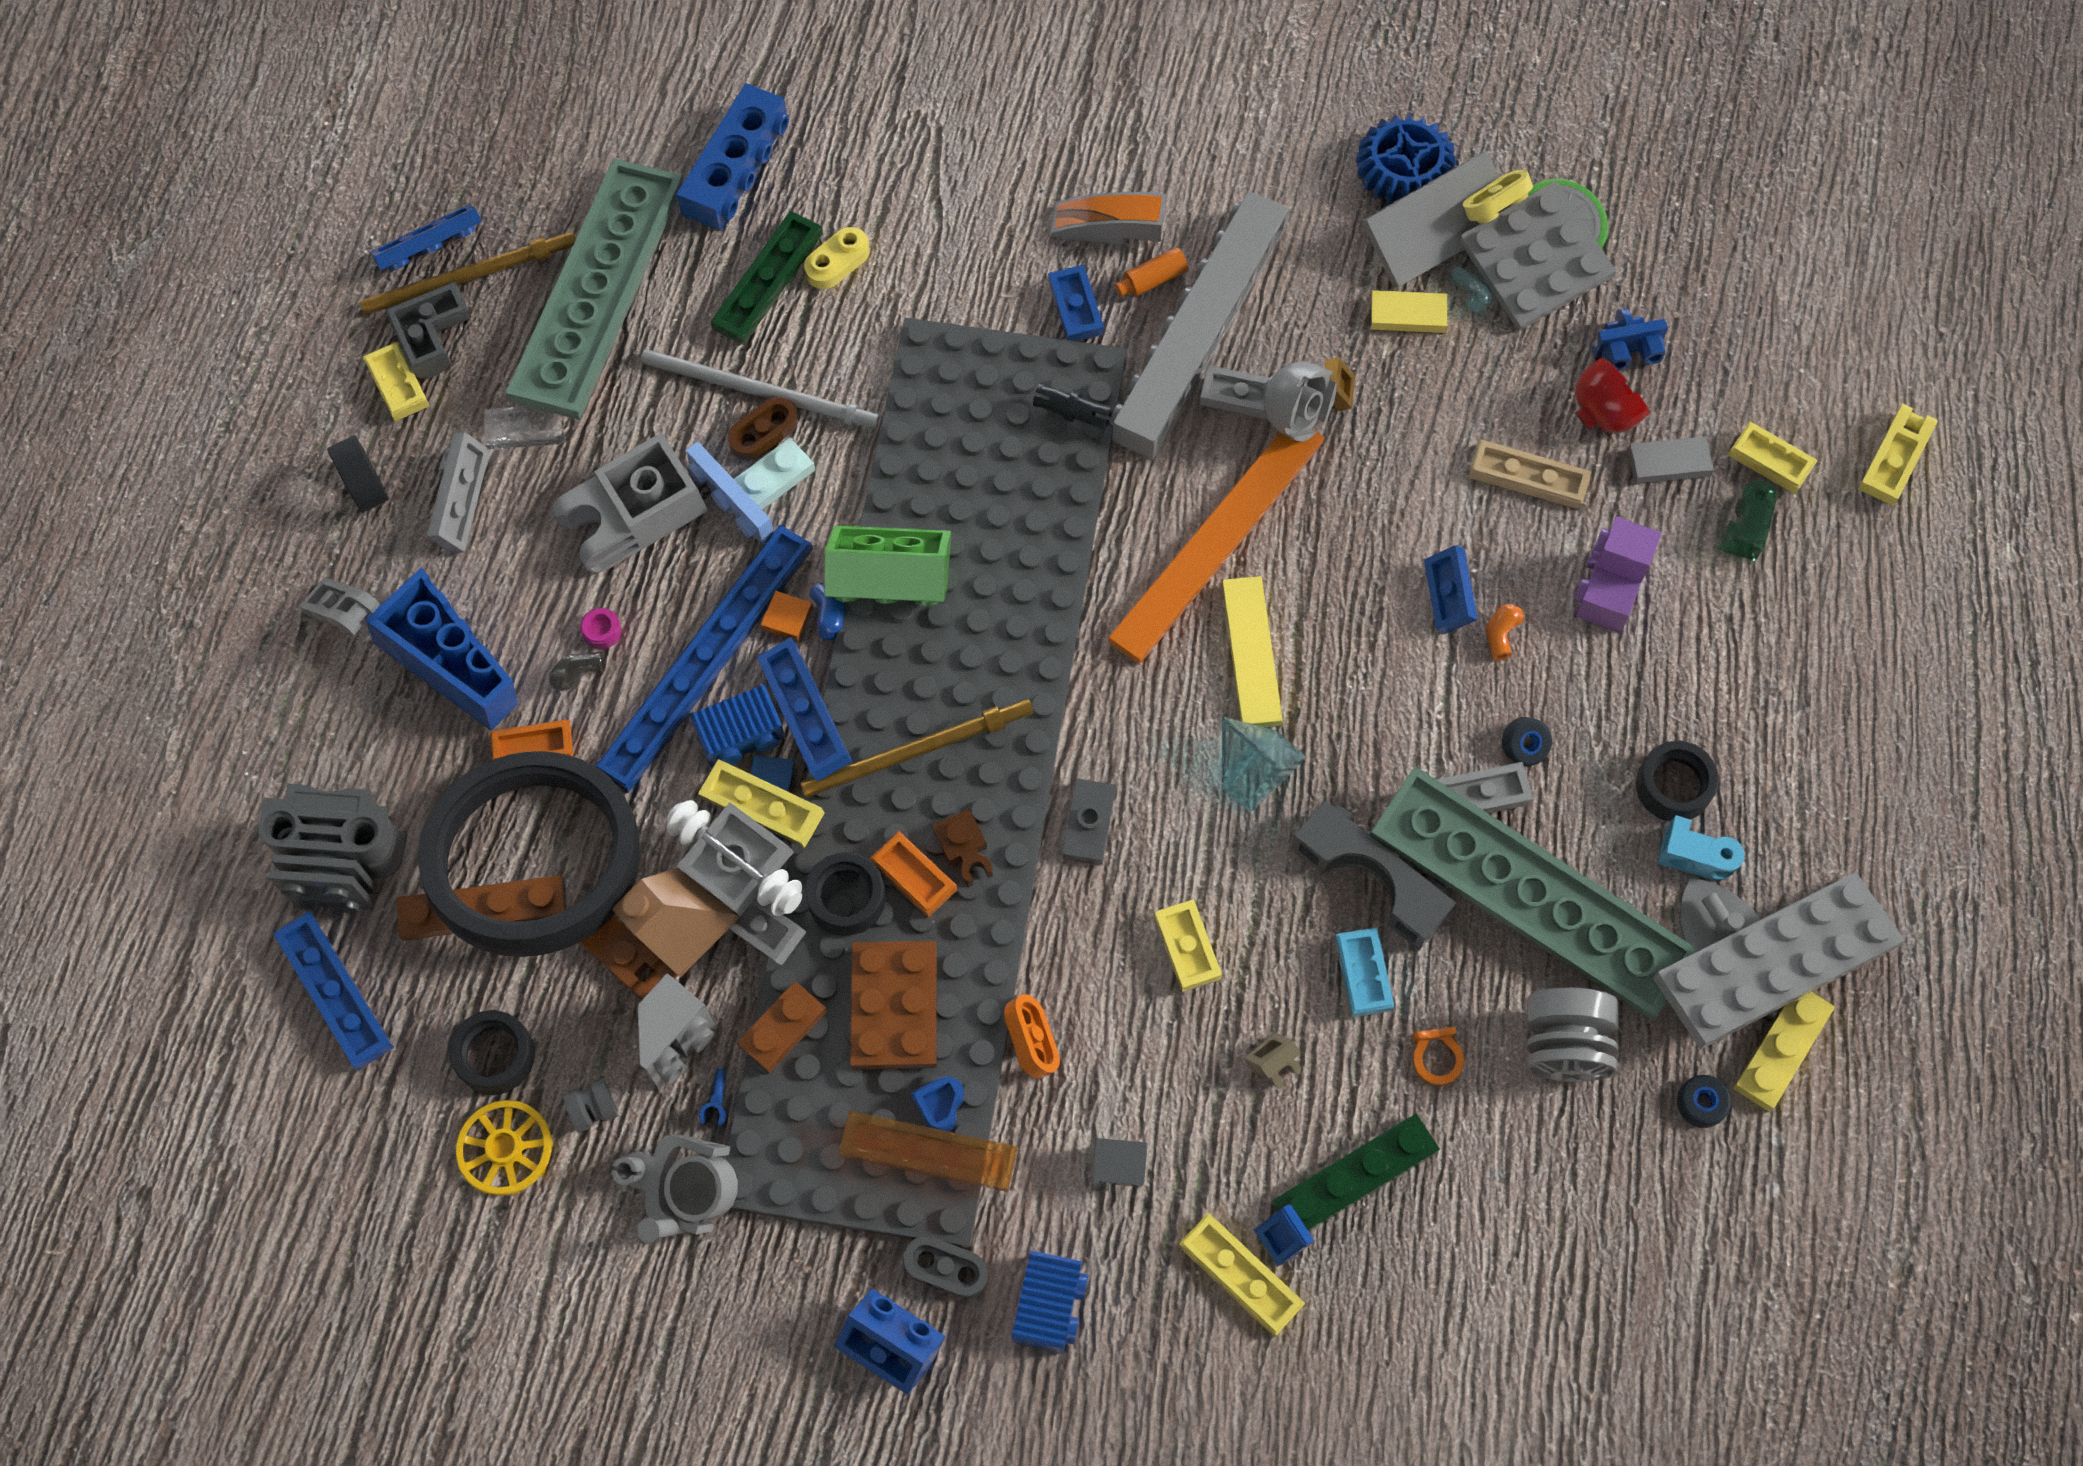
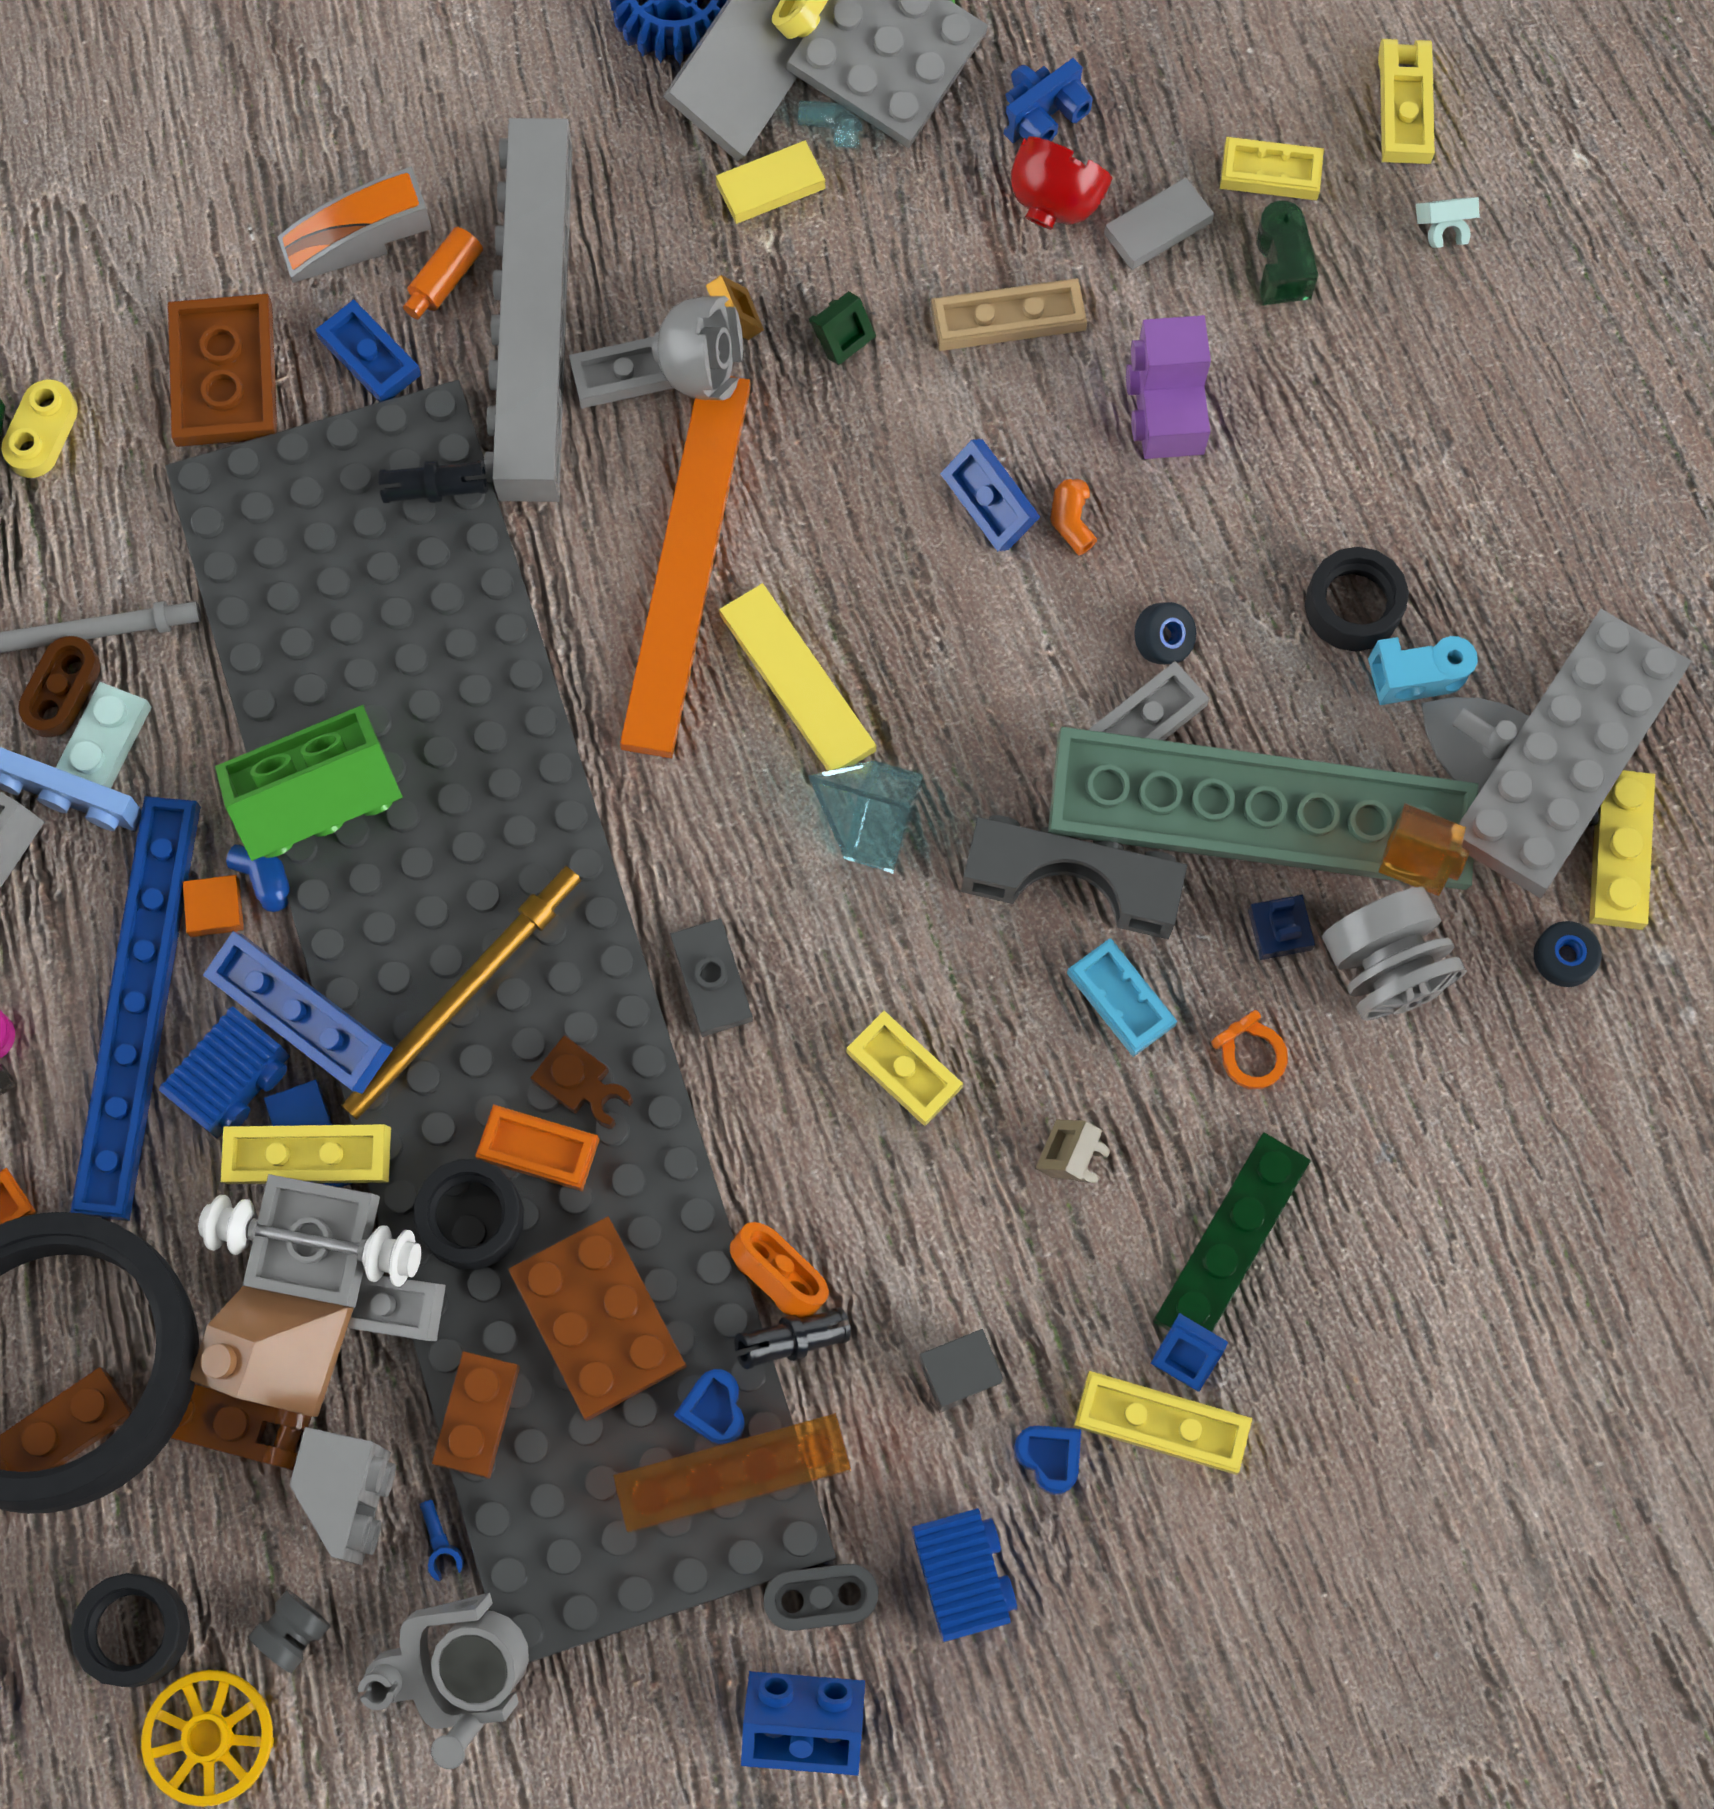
camera: 30 degrees left, 5 degrees up
(973, 272) = (221, 370): none -> dark orange plate
(1016, 1084) = (792, 1337): none -> black pin
(1152, 1256) = (1052, 1456): none -> blue tile
(1406, 431) = (843, 328): none -> dark green tile
(1504, 981) = (1281, 927): none -> dark blue tile
(1629, 972) = (1424, 850): none -> clear orange brick
(1887, 546) = (1445, 214): none -> light aqua tile

